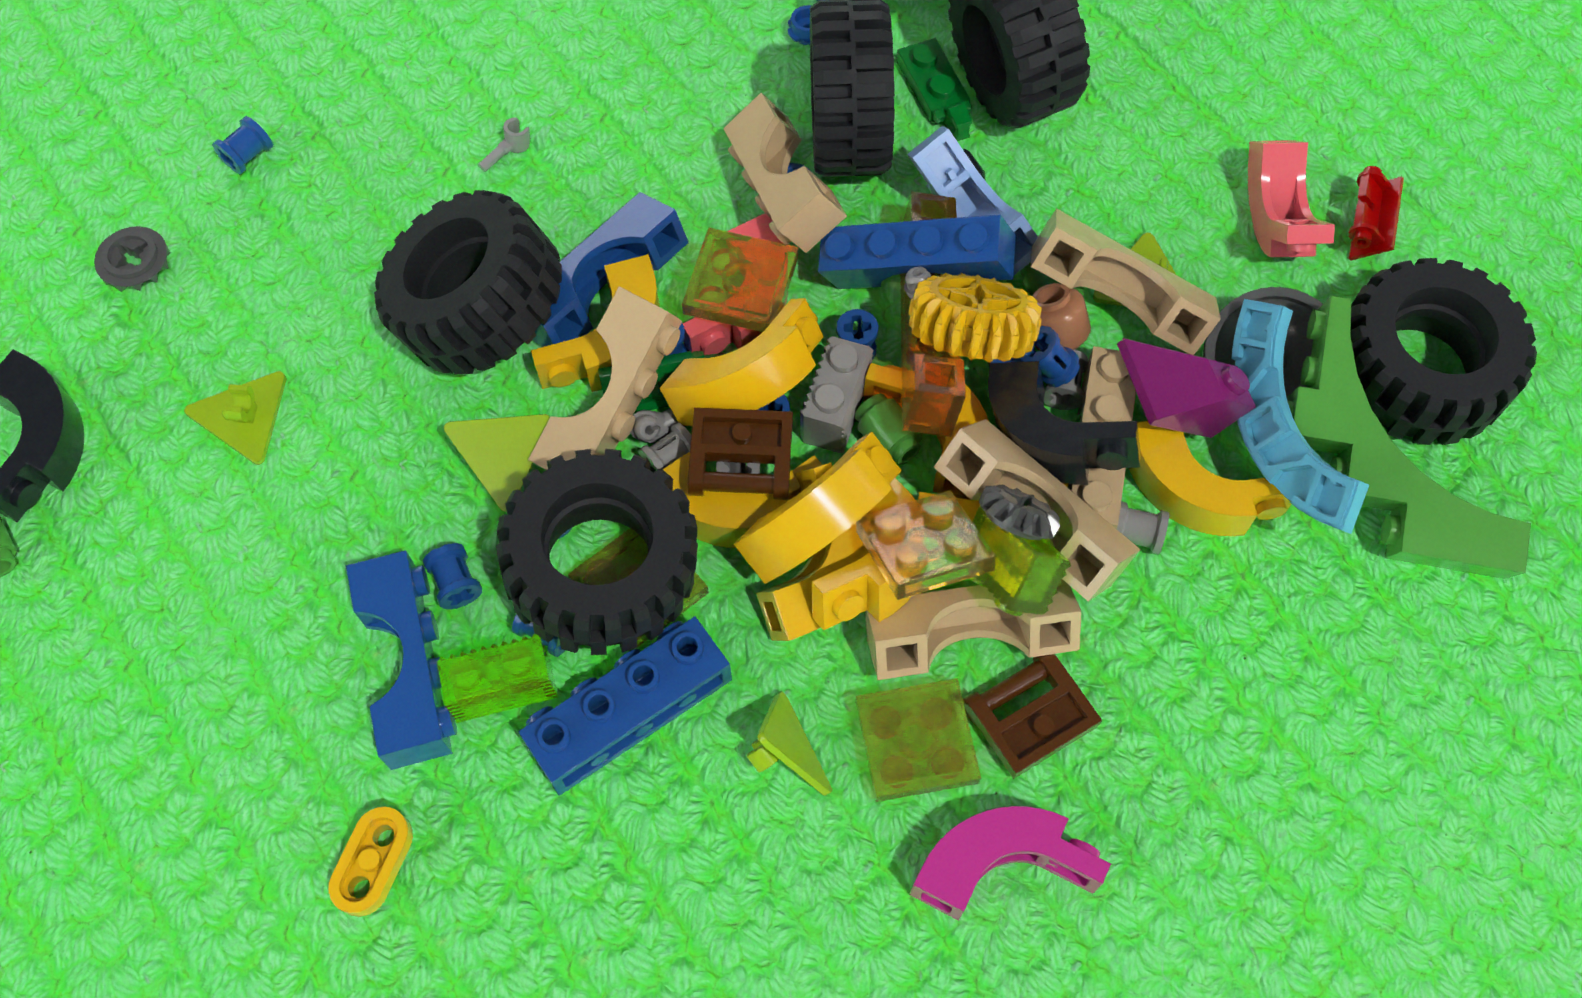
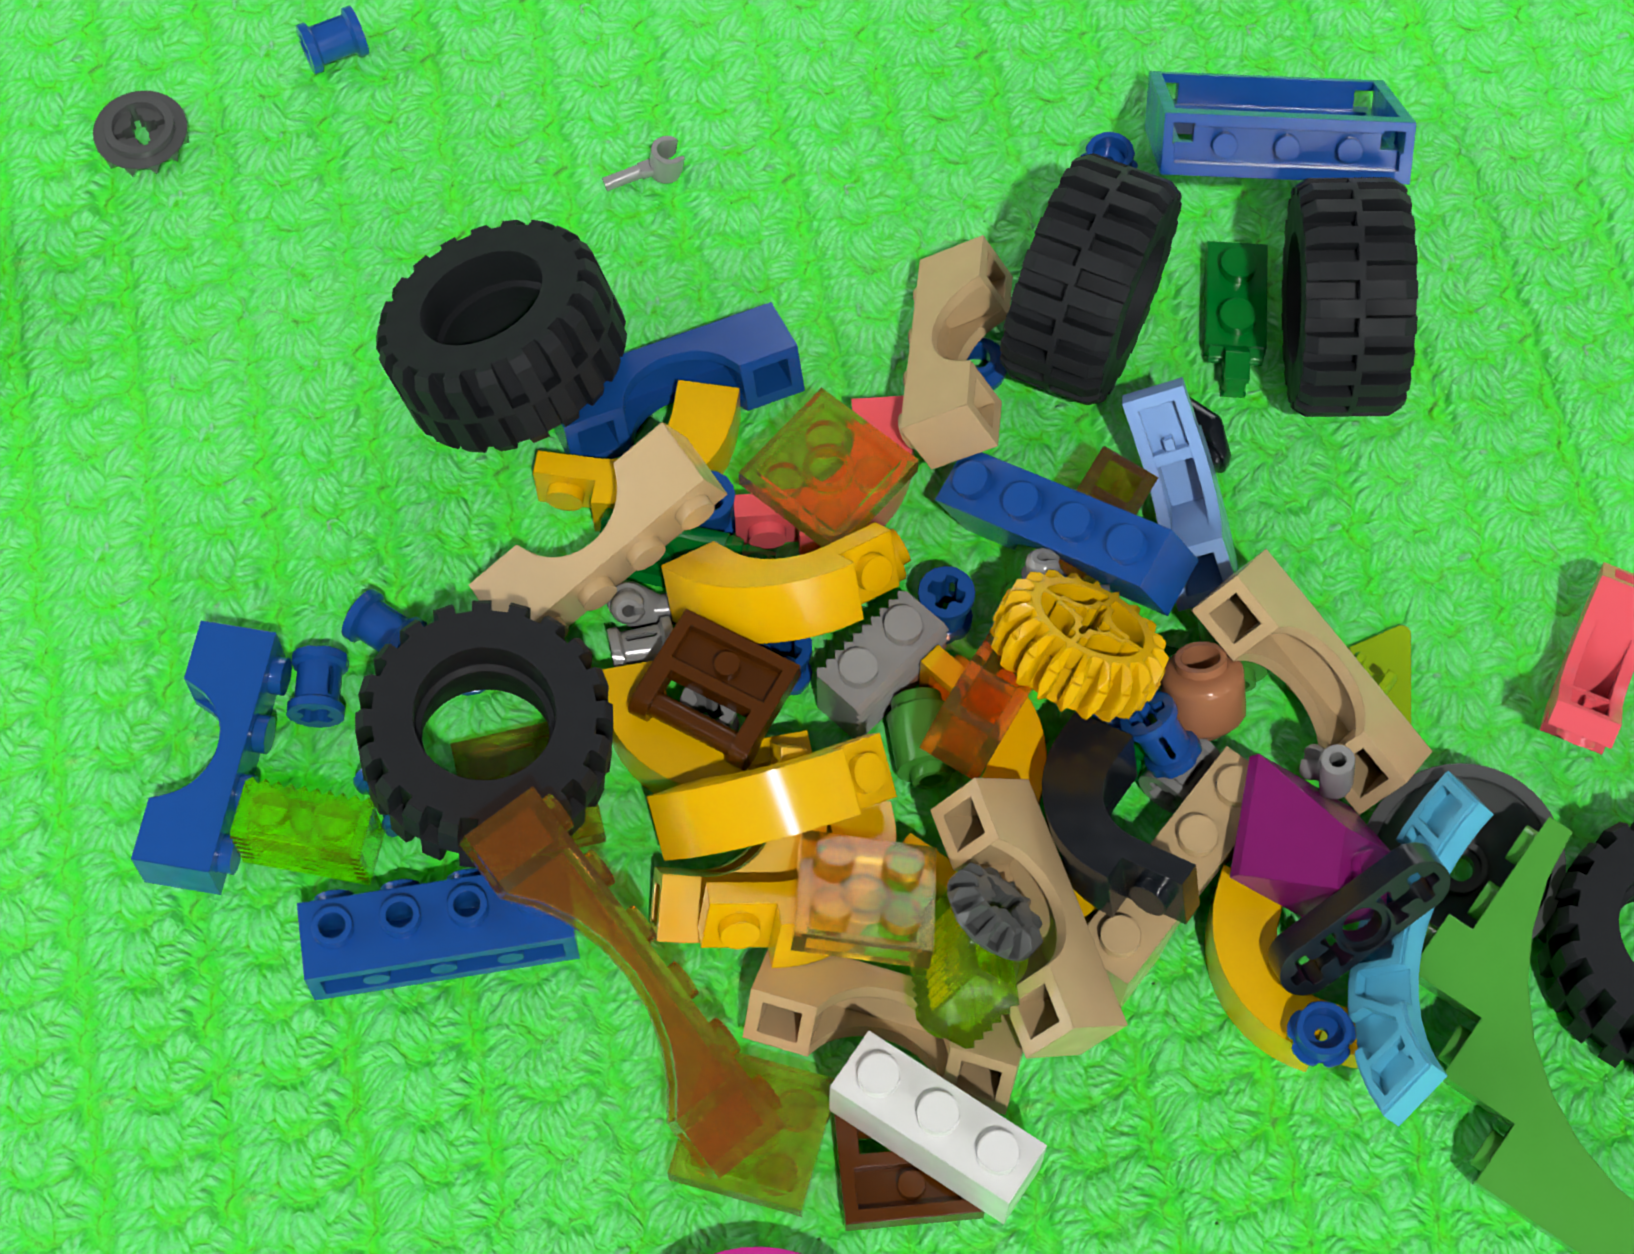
camera: 25 degrees right, 0 degrees up
(242, 415) = (178, 382): lime piece -> none
(368, 861) = (68, 972): yellow plate -> none
(476, 515) = (375, 621): none -> blue bush
(498, 450) = (441, 555): lime piece -> none
(785, 739) = (598, 1059): lime piece -> none
(886, 729) = (710, 1097): none -> clear orange arch
(1049, 677) = (936, 1127): none -> white brick
(1143, 527) = (1167, 1000): light grey bush -> none
(1171, 330) = (1331, 767): none -> light grey arm
(1229, 440) = (1408, 904): none -> black beam
(1266, 491) = (1325, 1017): none -> blue plate

